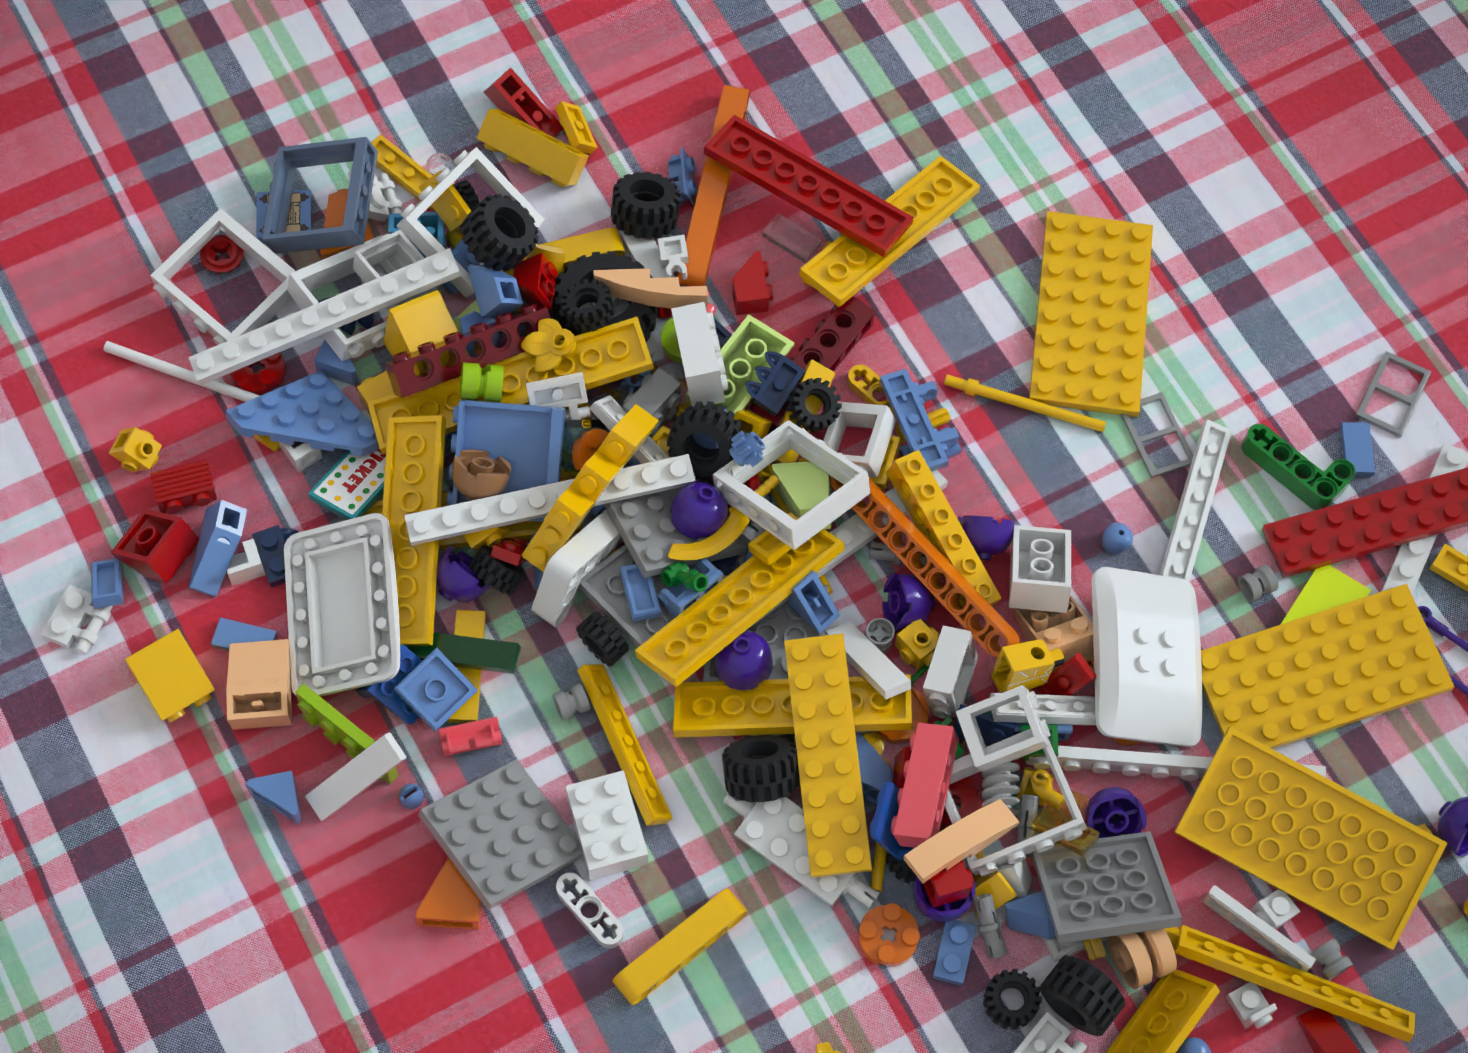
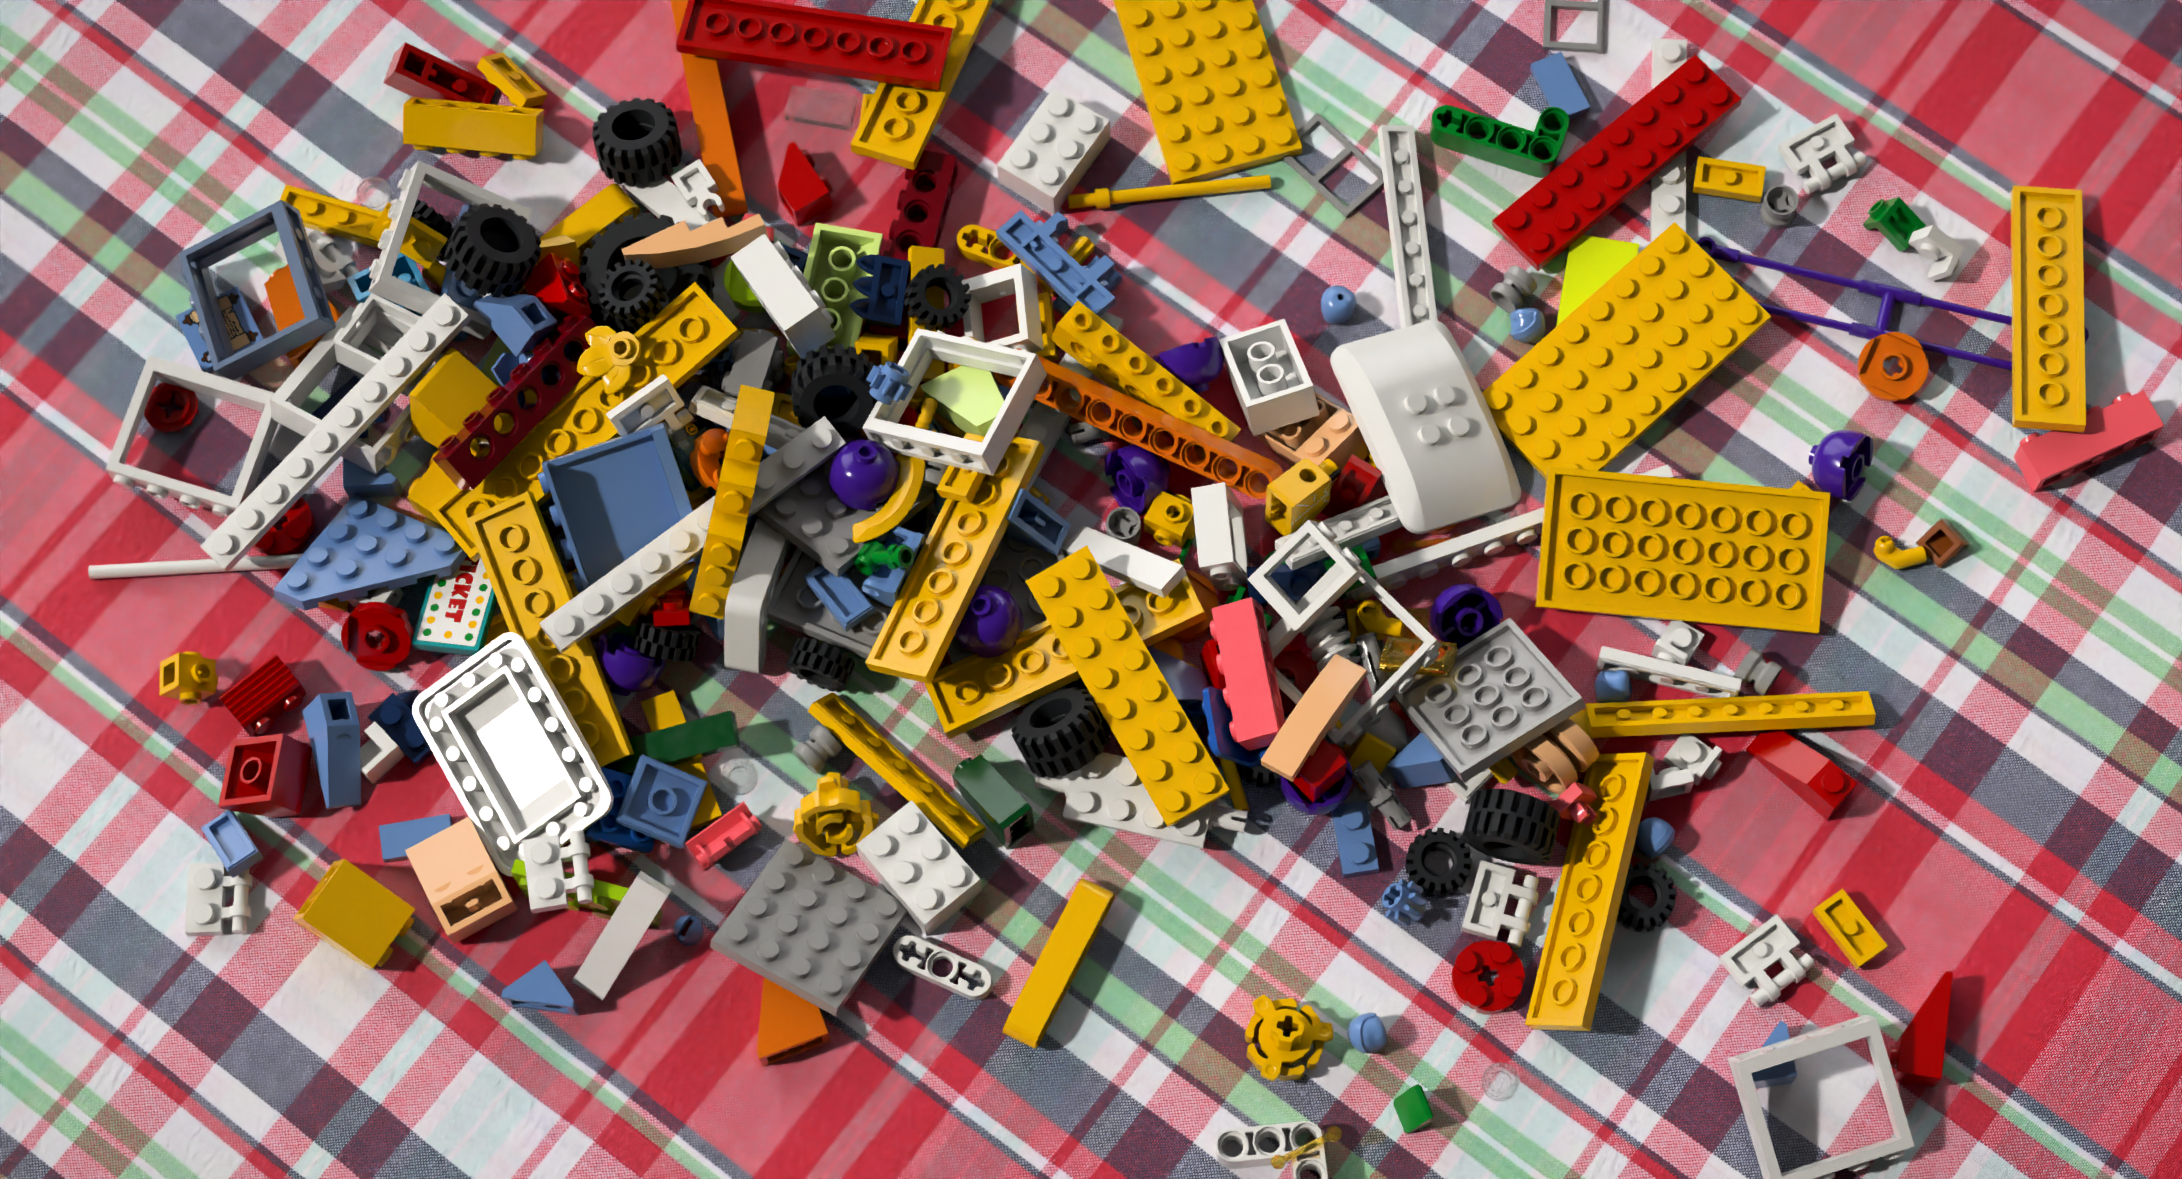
camera: 15 degrees left, 5 degrees up
(299, 470) = (389, 621): none -> red plate
(320, 703) = (546, 871): none -> white plate
(479, 475) = (601, 540): medium nougat cylinder -> none
(481, 382) = (555, 433): lime wheel -> none
(504, 697) = (739, 776): none -> clear tile
(562, 755) = (835, 812): none -> yellow piece
(683, 168) = (659, 78): medium blue hinge -> none
(687, 798) = (994, 800): none -> dark green slope
(887, 952) = (1274, 832): orange plate -> none
(950, 337) = (1053, 151): none -> white brick
(971, 1018) = (1404, 902): none -> medium blue gear
(1086, 740) = (1398, 545): none -> clear yellow hinge
(1141, 999) = (1575, 802): none -> coral tile
(1210, 920) = (1613, 686): none -> medium blue piece
(1224, 1017) = (1669, 783): none -> white bracket
(1258, 614) = (1527, 325): none -> medium blue piece

